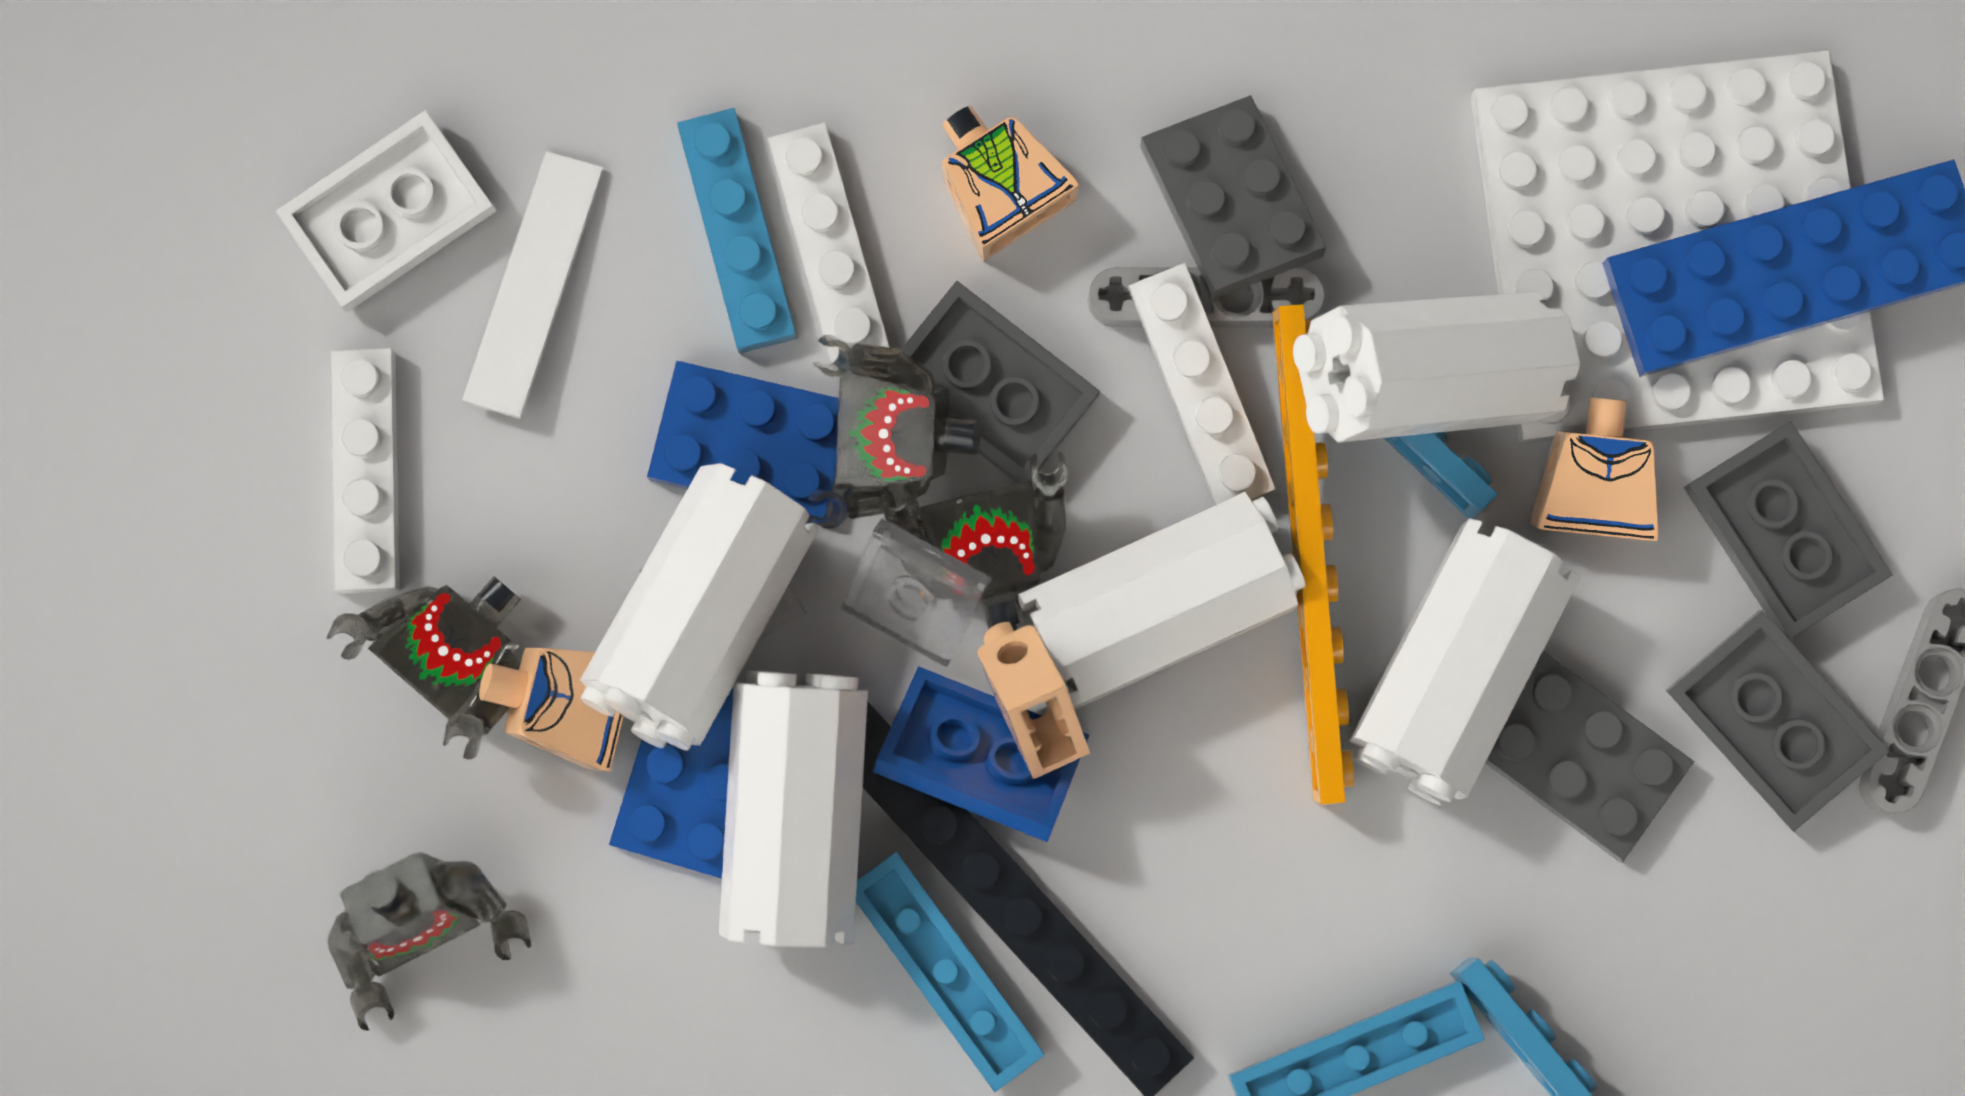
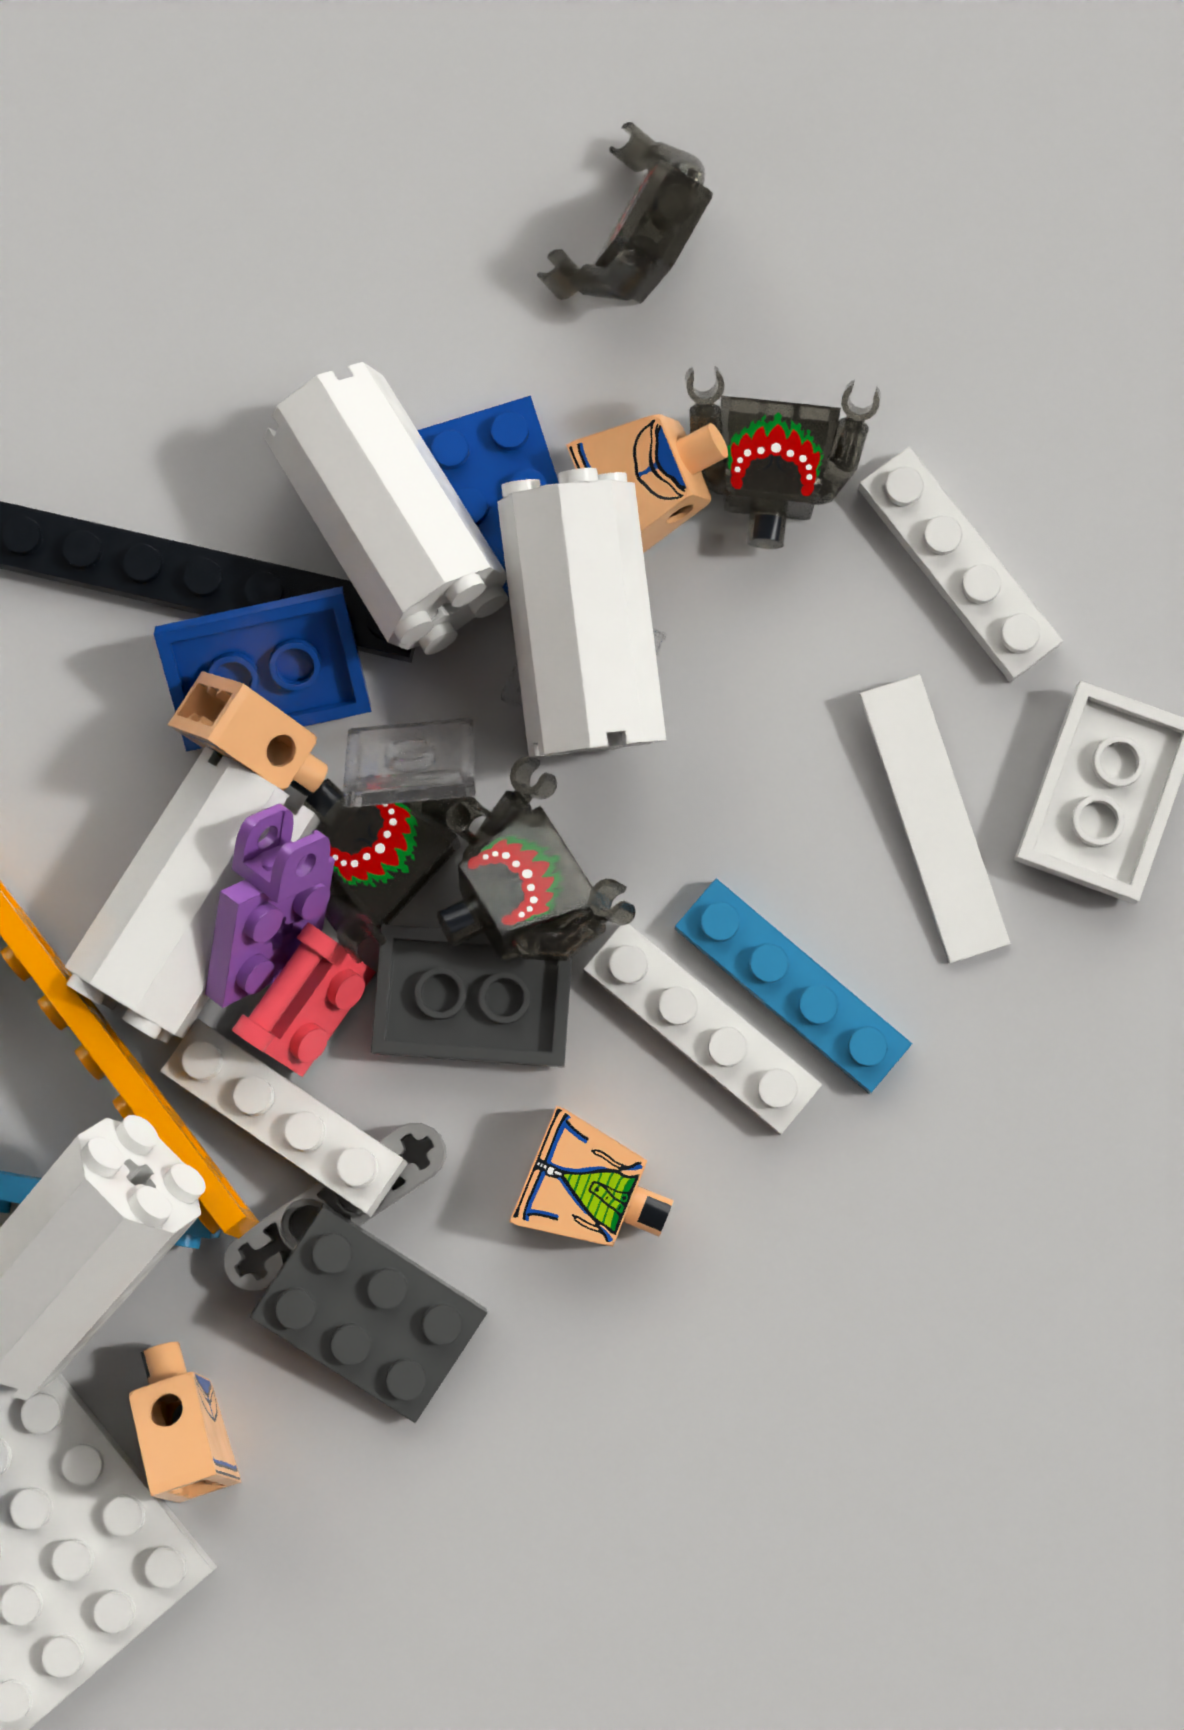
camera: 150 degrees right, 0 degrees up
(750, 426) = (653, 807): blue plate -> none
(946, 972) = (178, 478): dark azure plate -> none
(1104, 529) = (267, 911): none -> medium lavender plate
(1139, 452) = (305, 1001): none -> coral plate
(1440, 175) = (195, 1451): none -> light nougat torso

